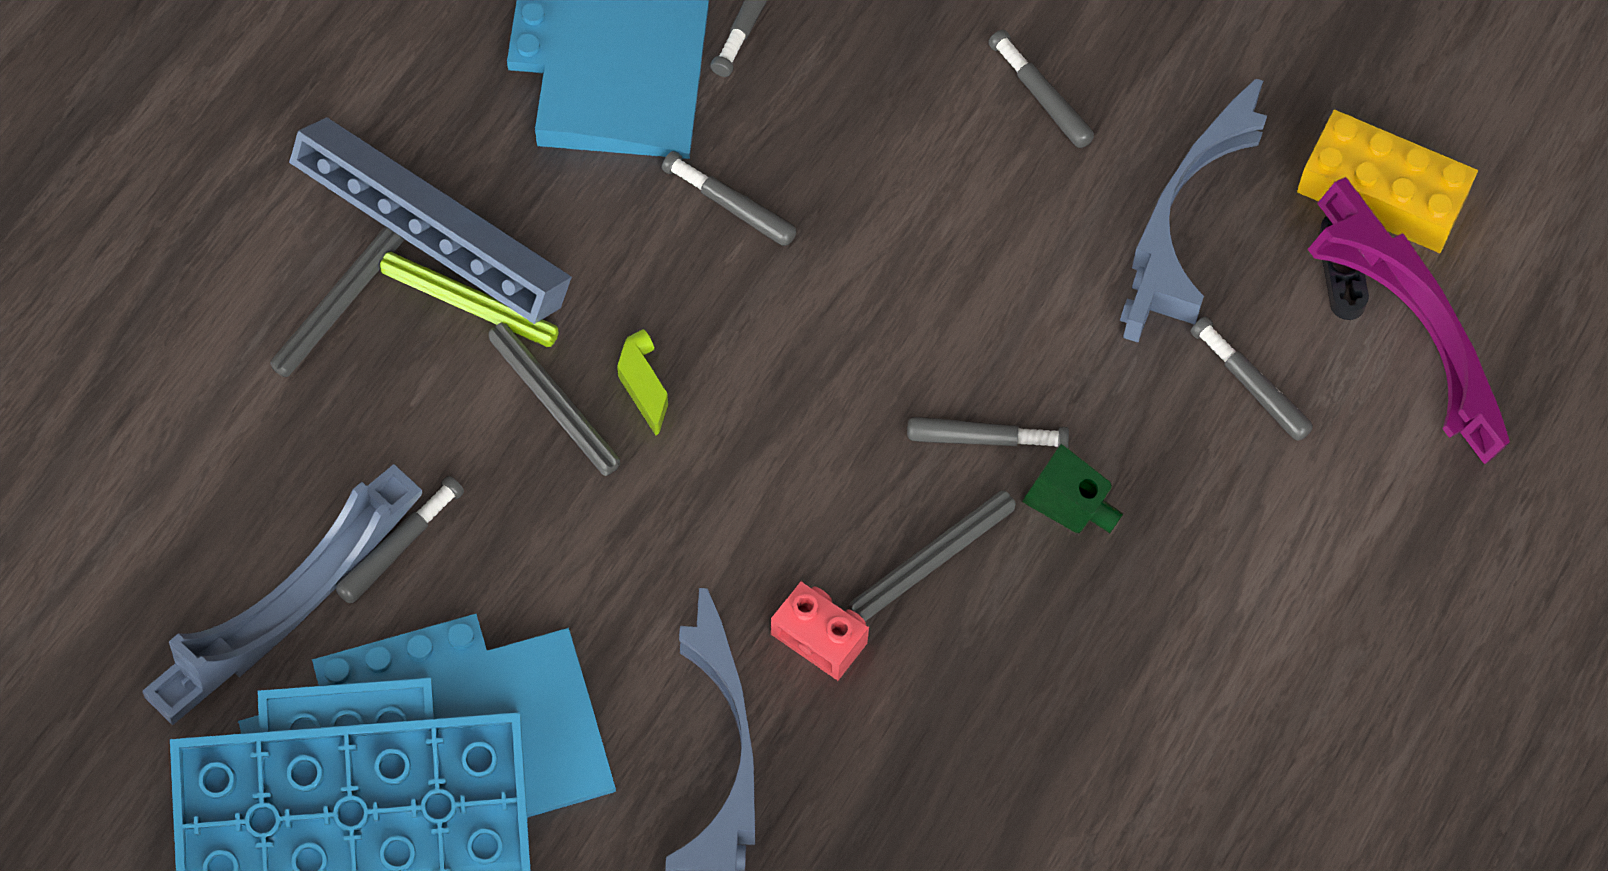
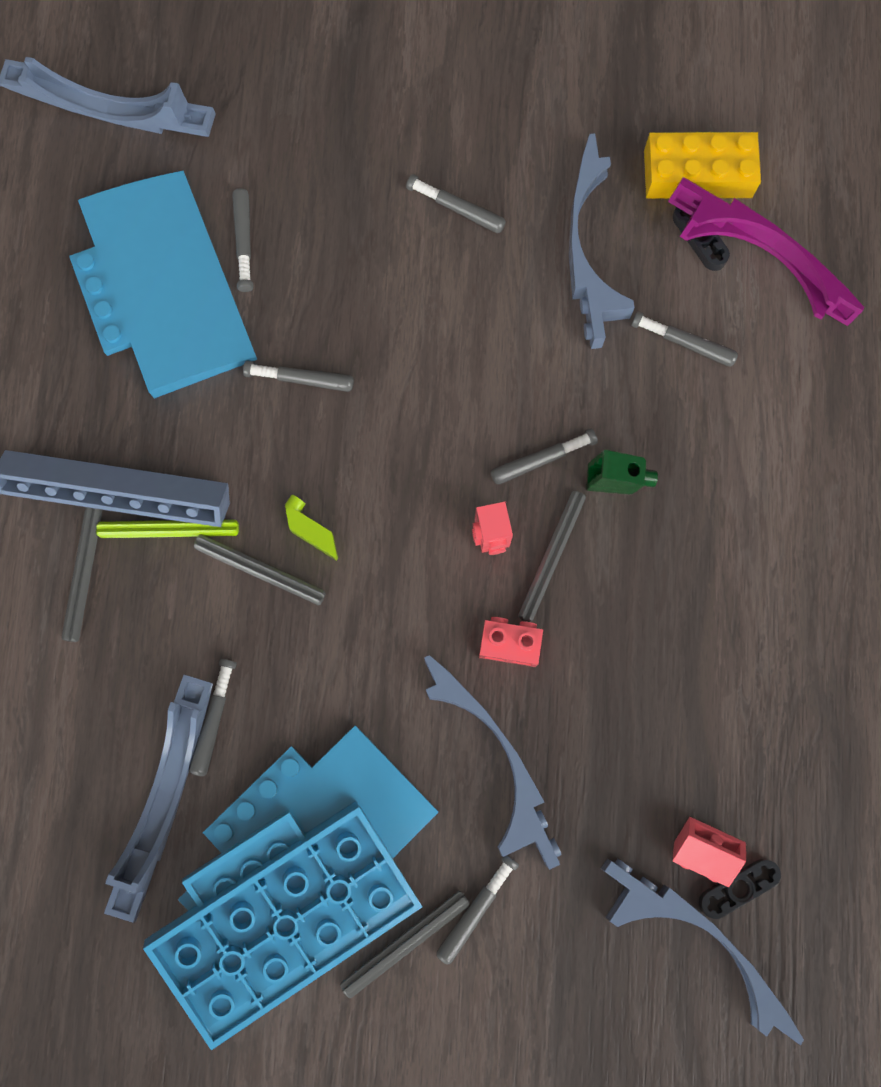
camera: 25 degrees left, 15 degrees up
(870, 478) = (492, 528): none -> coral brick

